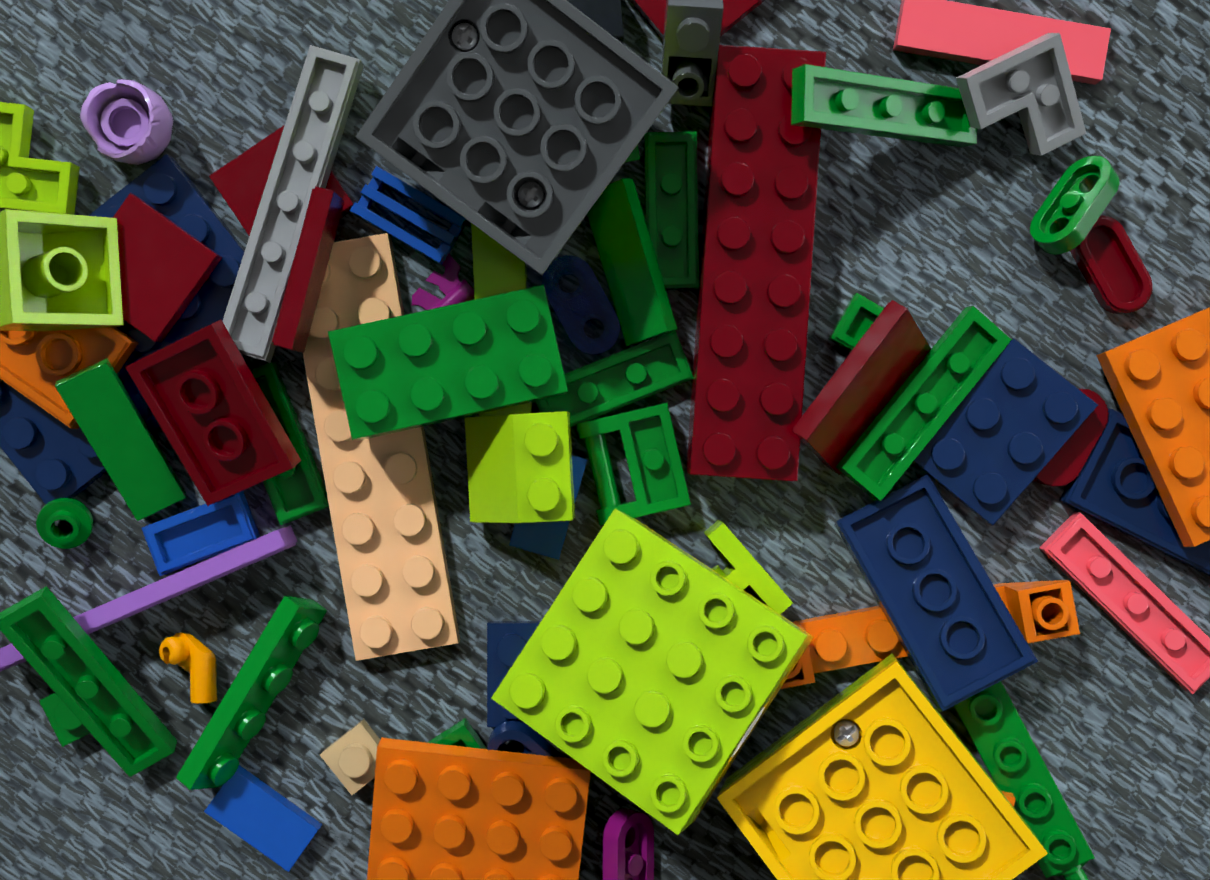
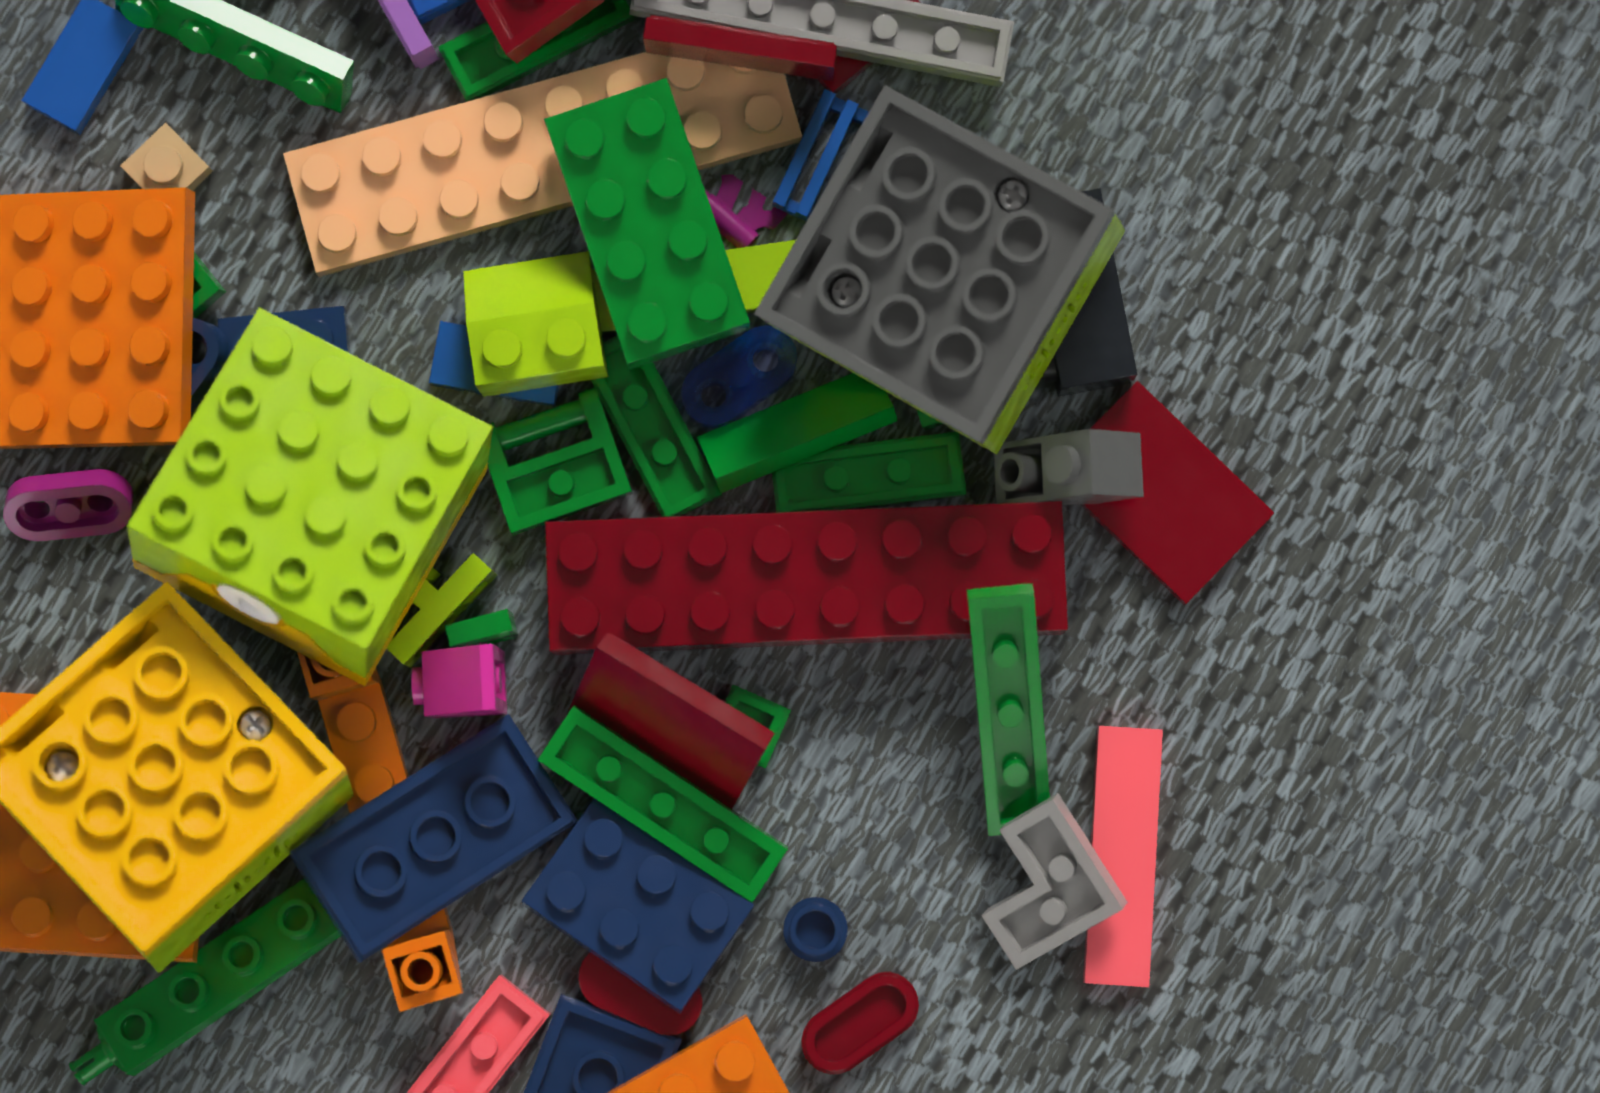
camera: 90 degrees right, 5 degrees down
(768, 536) = (484, 629): none -> green tile
(812, 556) = (461, 682): none -> dark pink slope
(1034, 292) = (815, 929): none -> dark blue plate
(1074, 205) = (925, 963): green plate -> none

